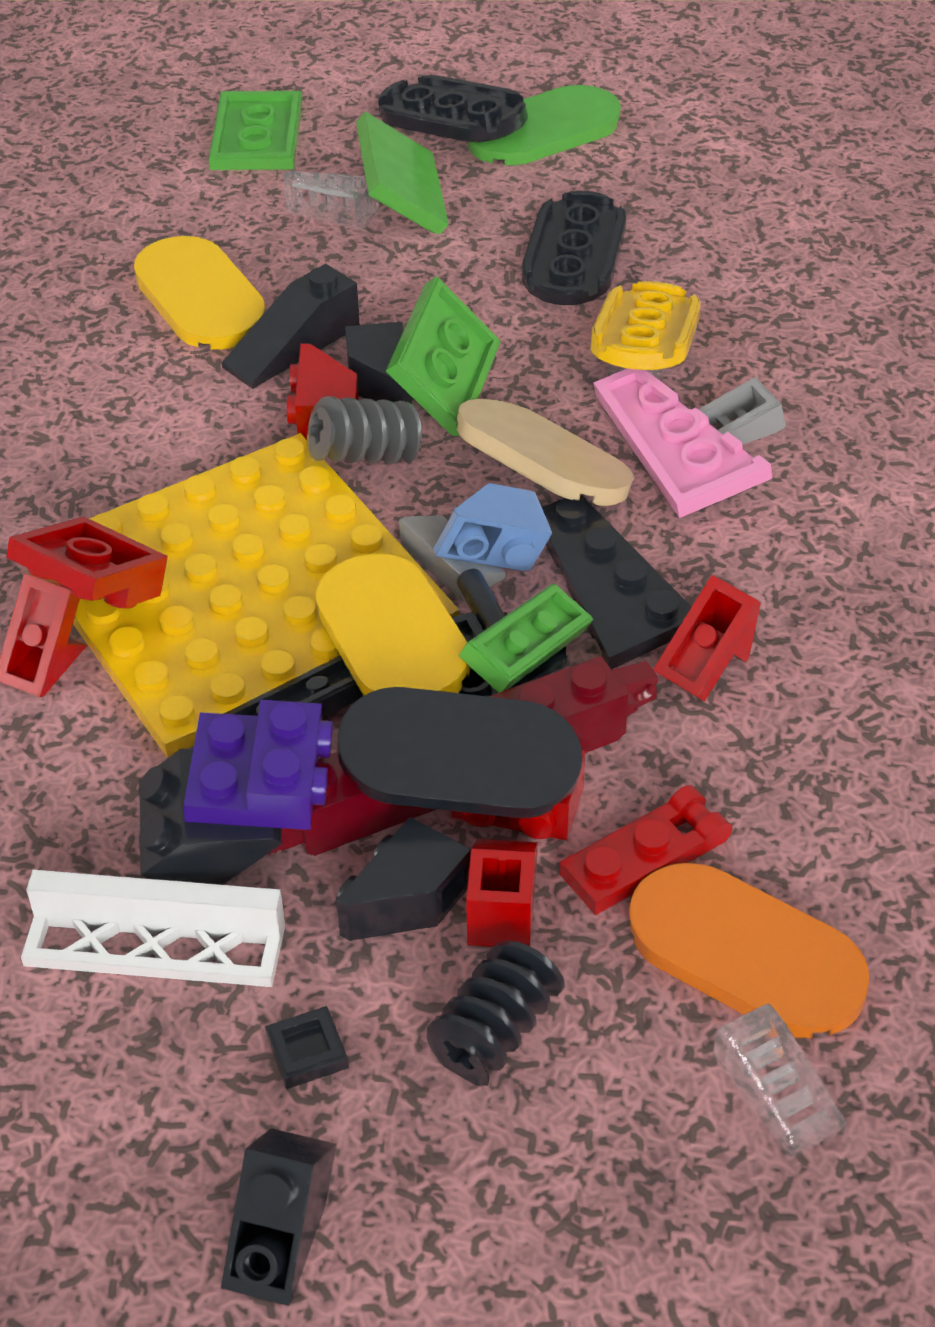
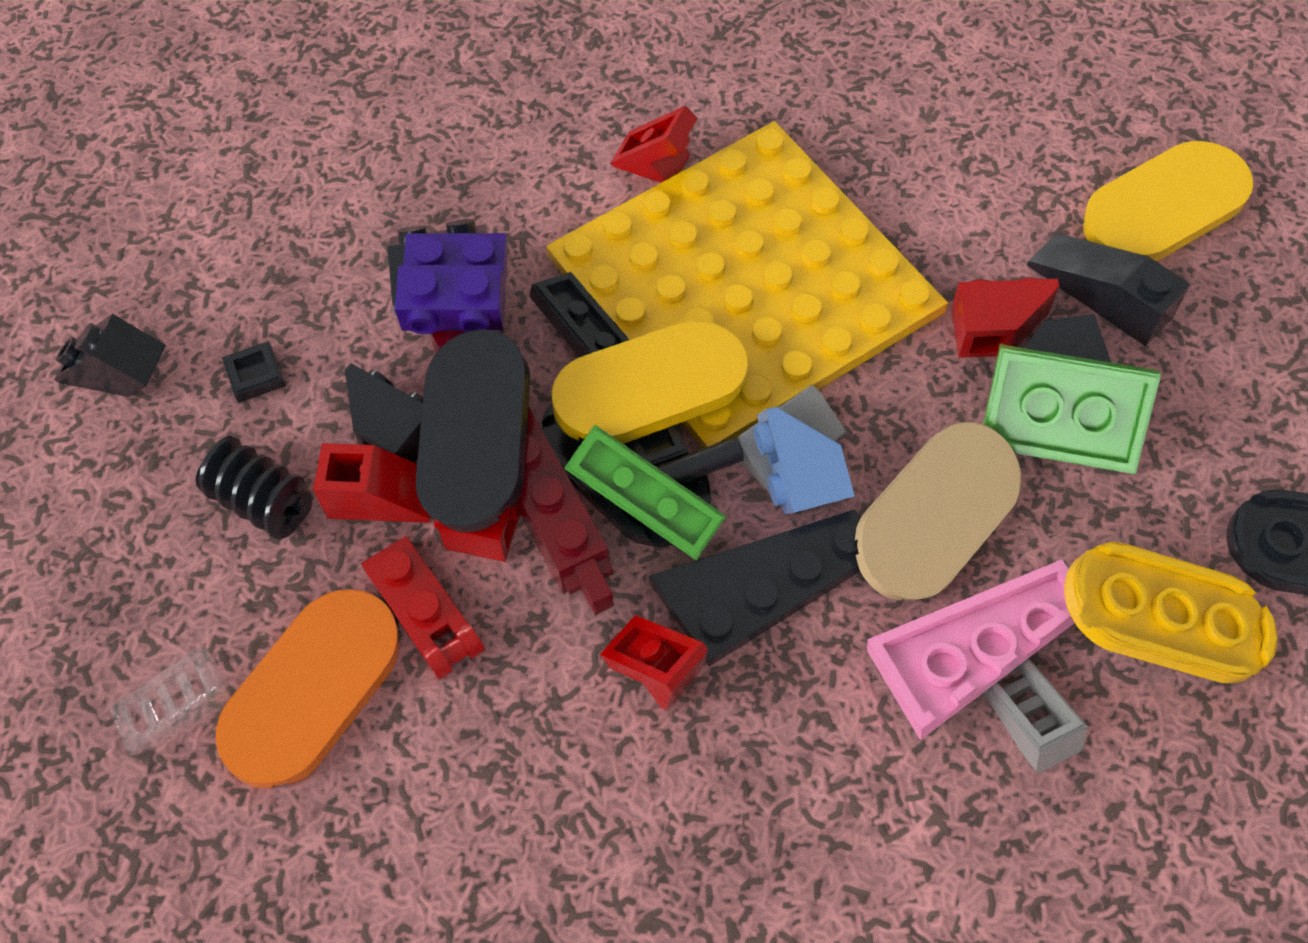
camera: 90 degrees right, 15 degrees up
(91, 561) = (702, 146): red plate -> none
(157, 909) = (370, 269): white fence -> none
(364, 430) = (933, 342): dark grey piece -> none

